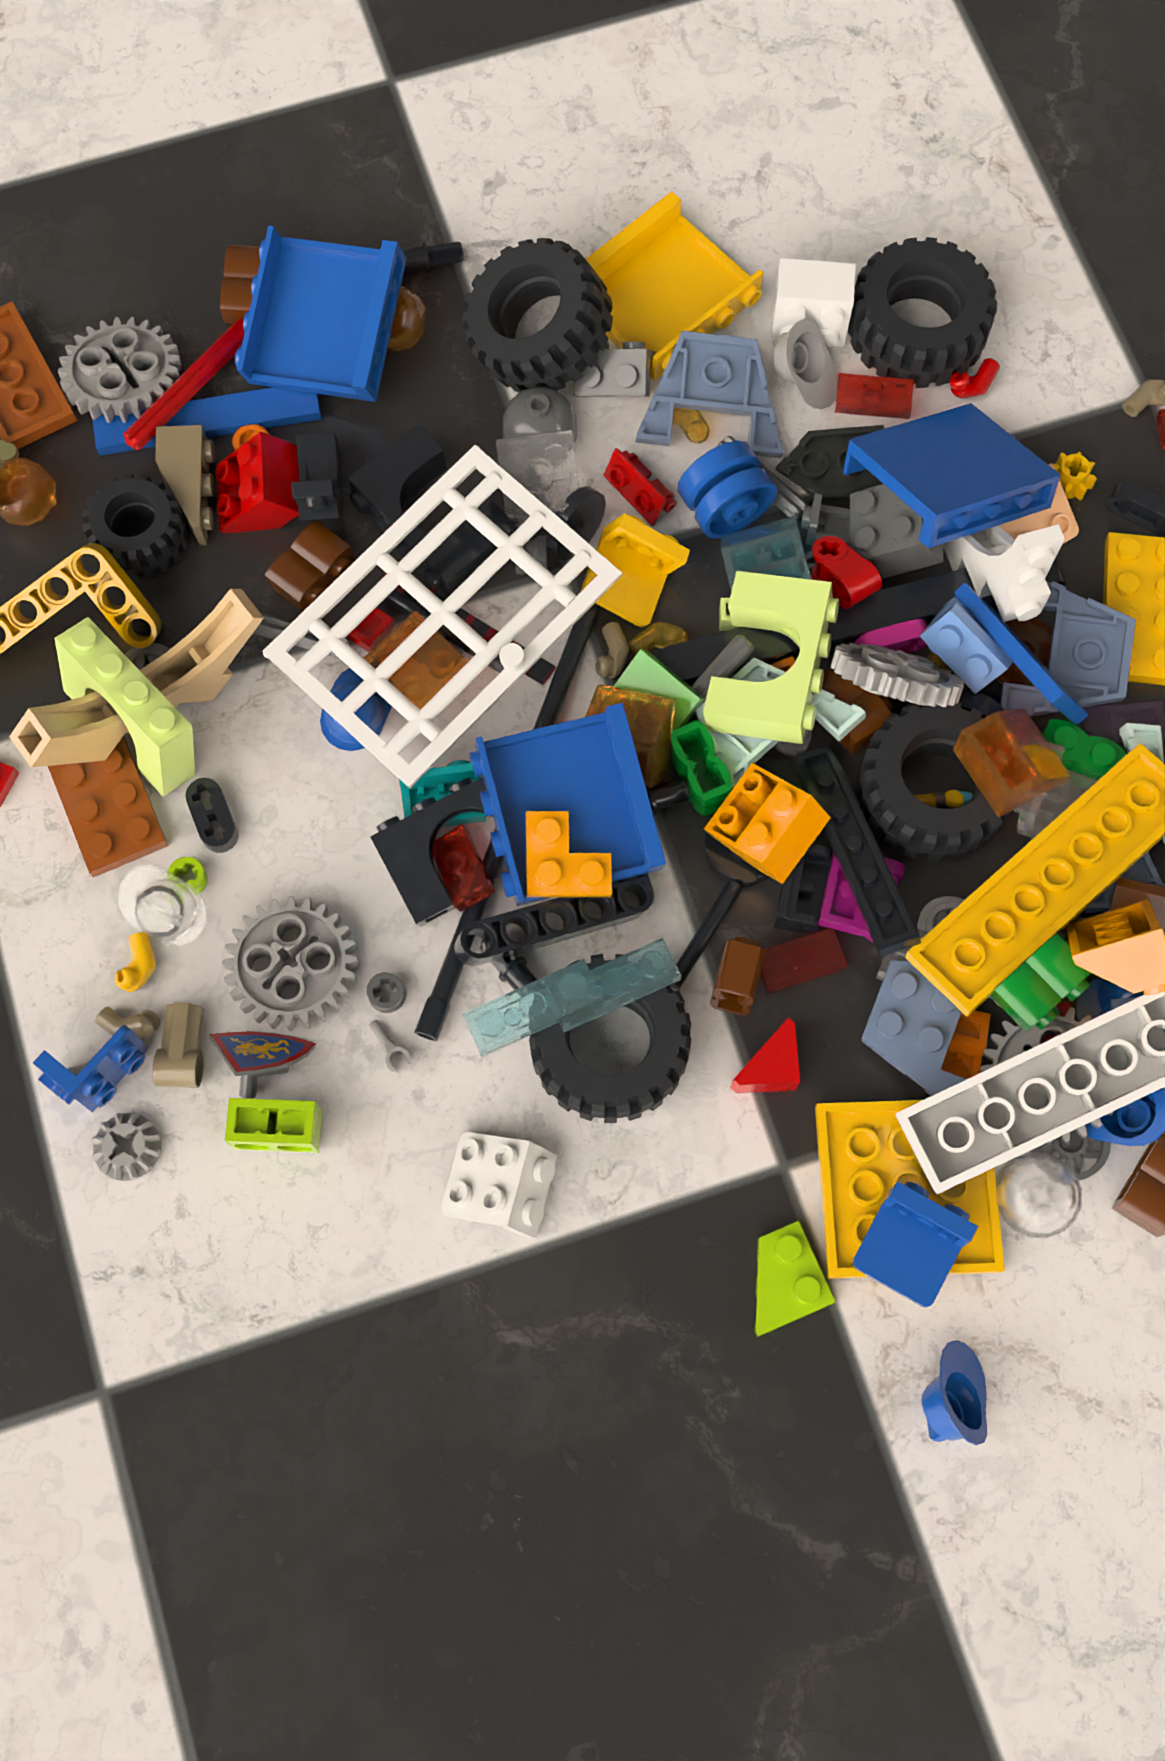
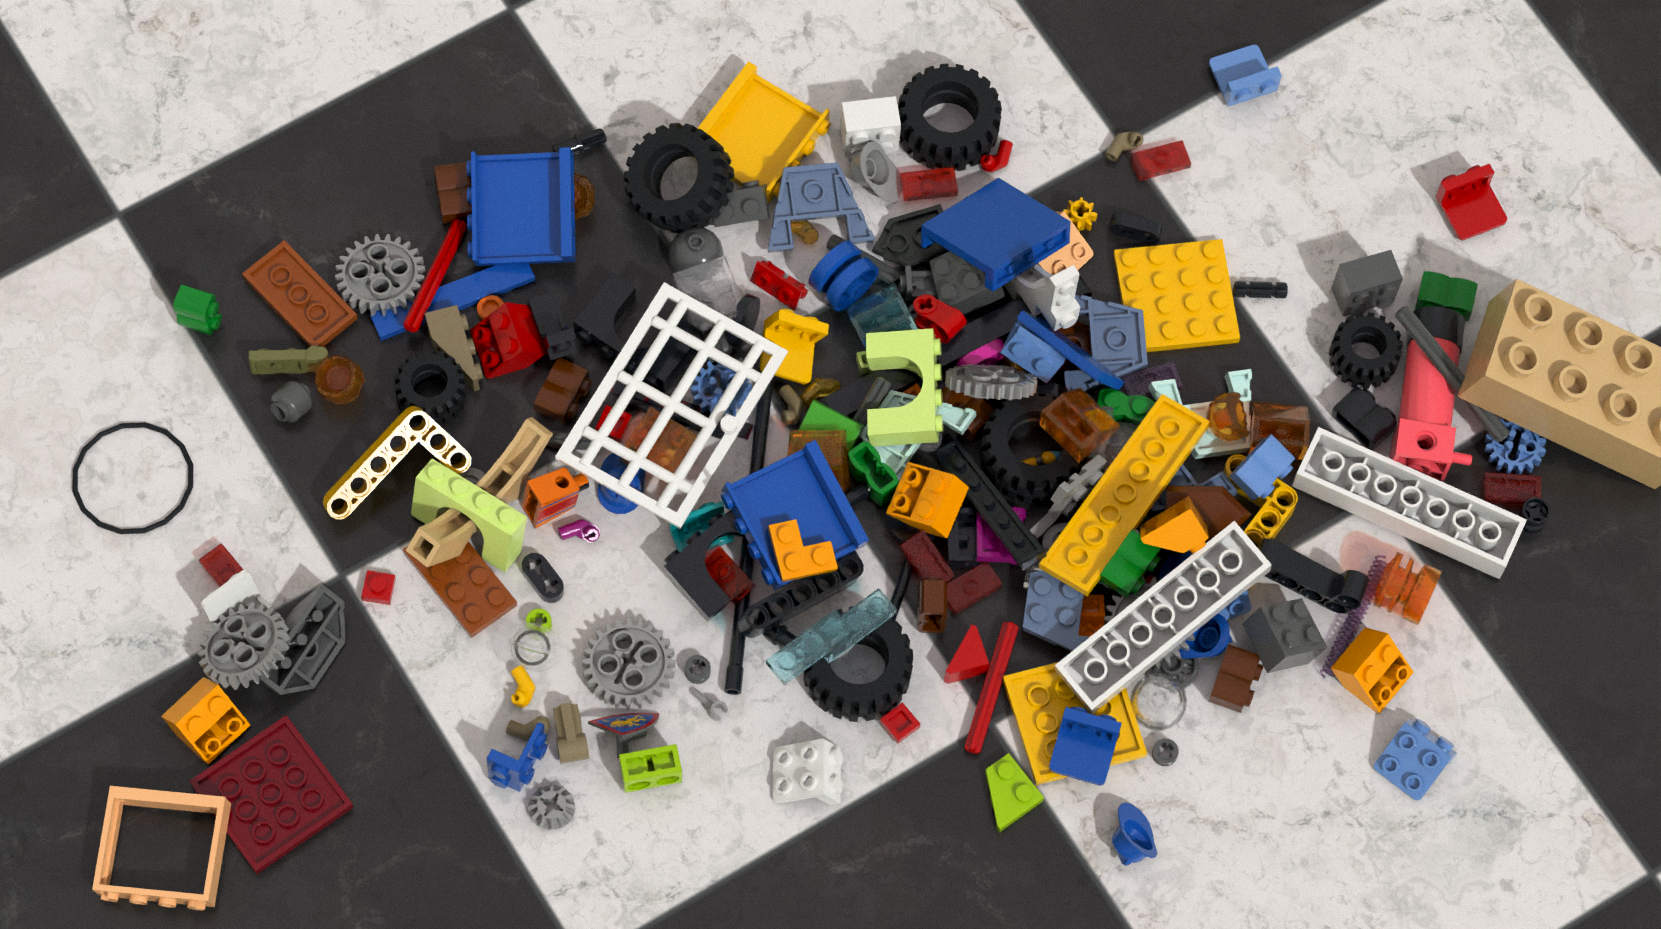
camera: 20 degrees left, 5 degrees down
(253, 703) = (552, 495): none -> orange torso
(283, 759) = (580, 529): none -> magenta arm
(506, 598) = (706, 383): none -> medium blue gear
(651, 1138) = (900, 723): none -> red plate
(746, 905) = (925, 557): none -> clear red plate
(795, 1116) = (991, 688): none -> red axle
(983, 856) = (1069, 493): none -> light grey wing
(1043, 1279) = (1173, 755): none -> dark grey bush

